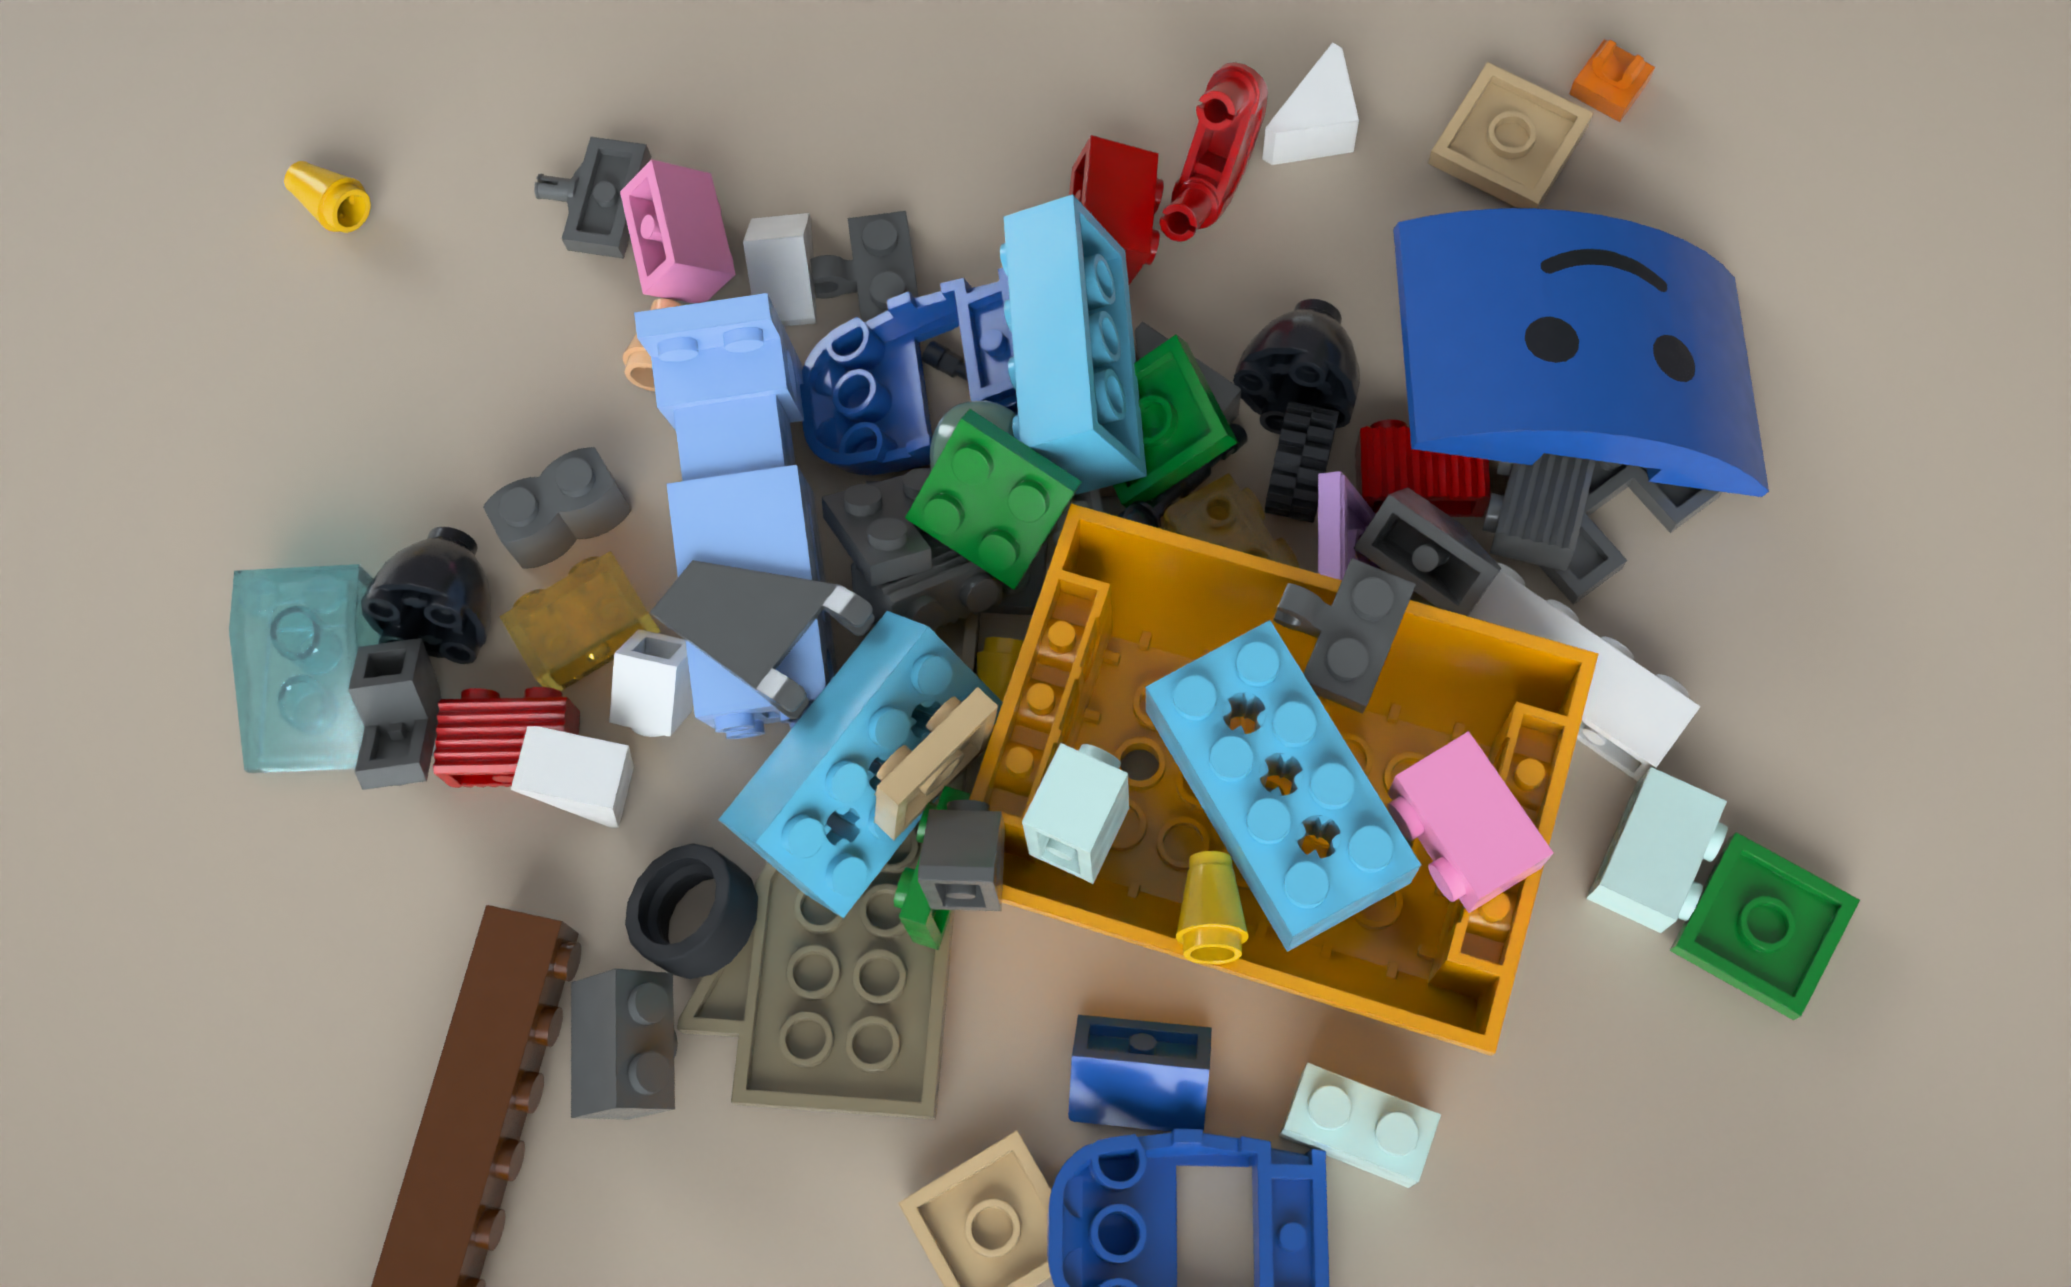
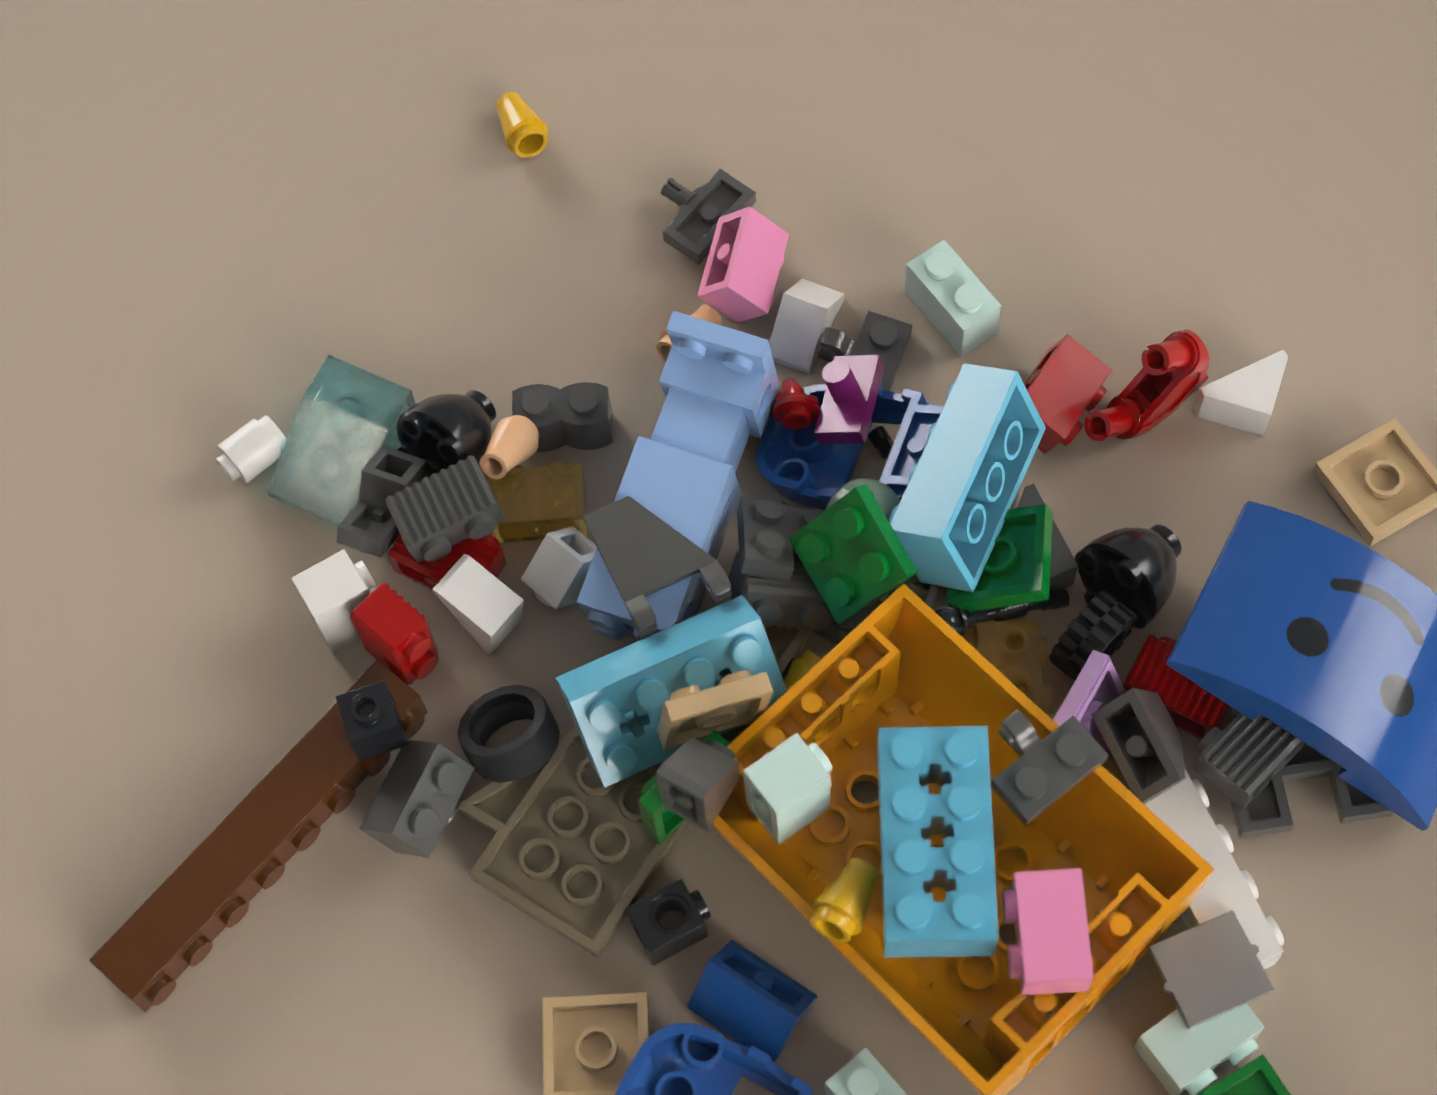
camera: 25 degrees right, 5 degrees down
(197, 730) = (251, 449): none -> white brick
(403, 855) = (332, 593): none -> white brick
(476, 686) = (445, 510): none -> dark grey brick
(493, 863) = (396, 634): none -> red brick
(513, 571) = (511, 443): none -> light nougat cone
(519, 983) = (371, 720): none -> black brick
(825, 366) = (794, 407): none -> red plate
(883, 326) = (848, 399): none -> magenta tile
(935, 158) = (952, 298): none -> light aqua brick
(991, 1062) = (664, 943): none -> black brick
(1636, 768) = (1210, 969): none -> light grey piece

